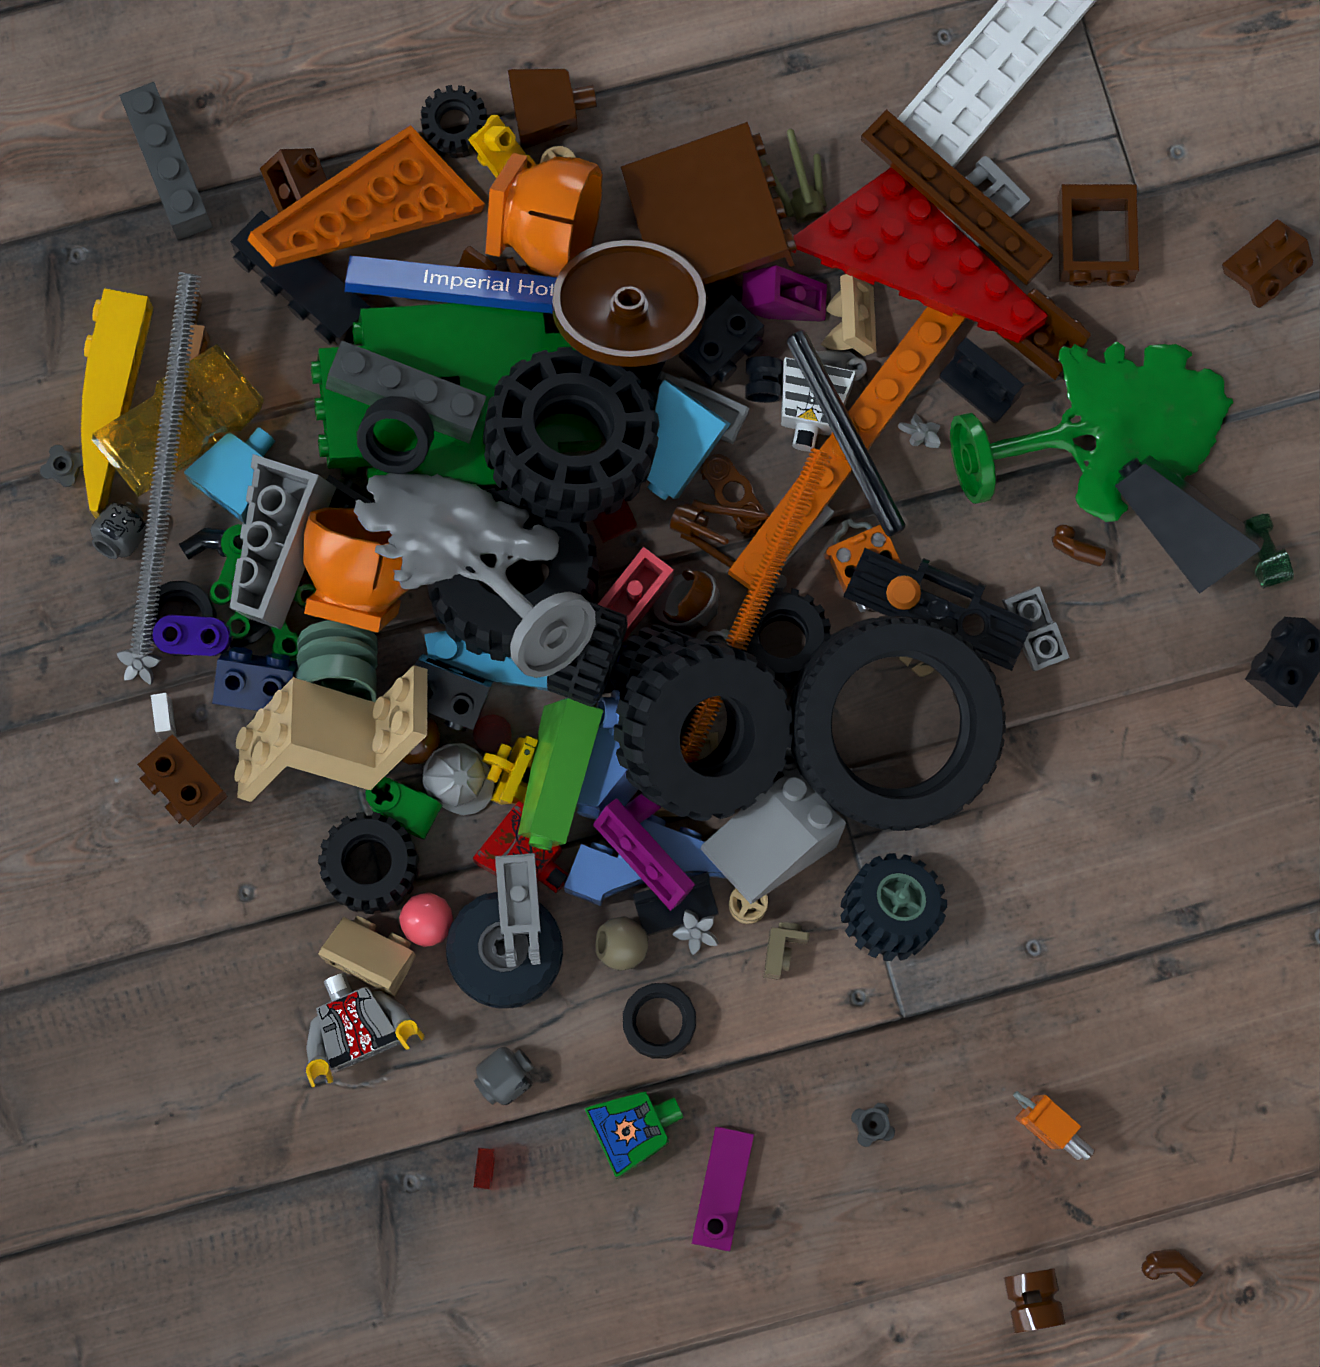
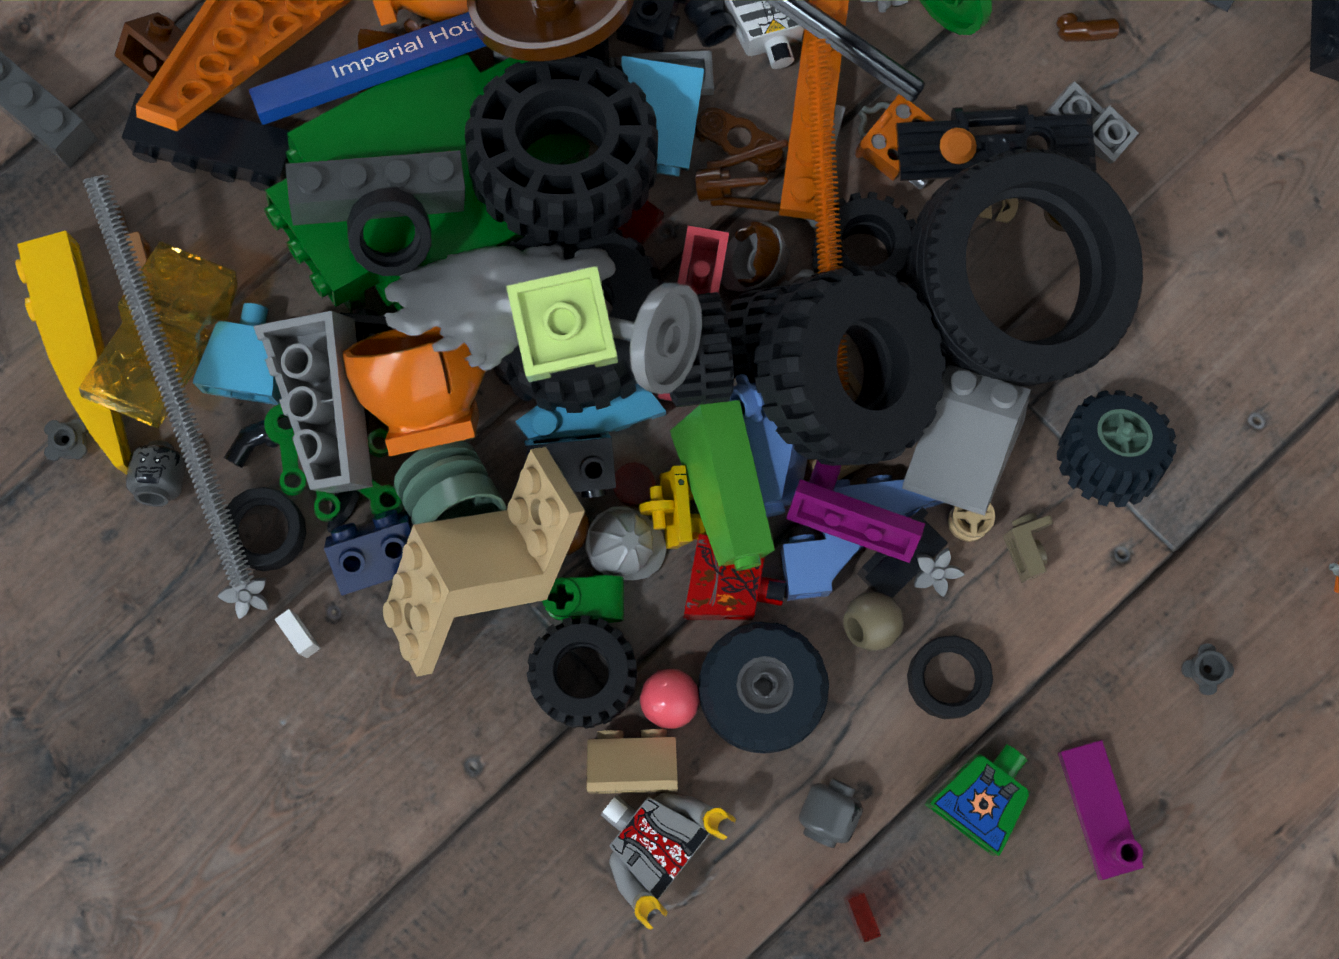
camera: 30 degrees left, 0 degrees up
(180, 782) = (351, 687): reddish brown brick -> none
(191, 635) = (284, 538): dark purple plate -> none
(481, 581) = (562, 323): none -> yellowish green panel
(518, 903) = (760, 635): light grey hinge -> none

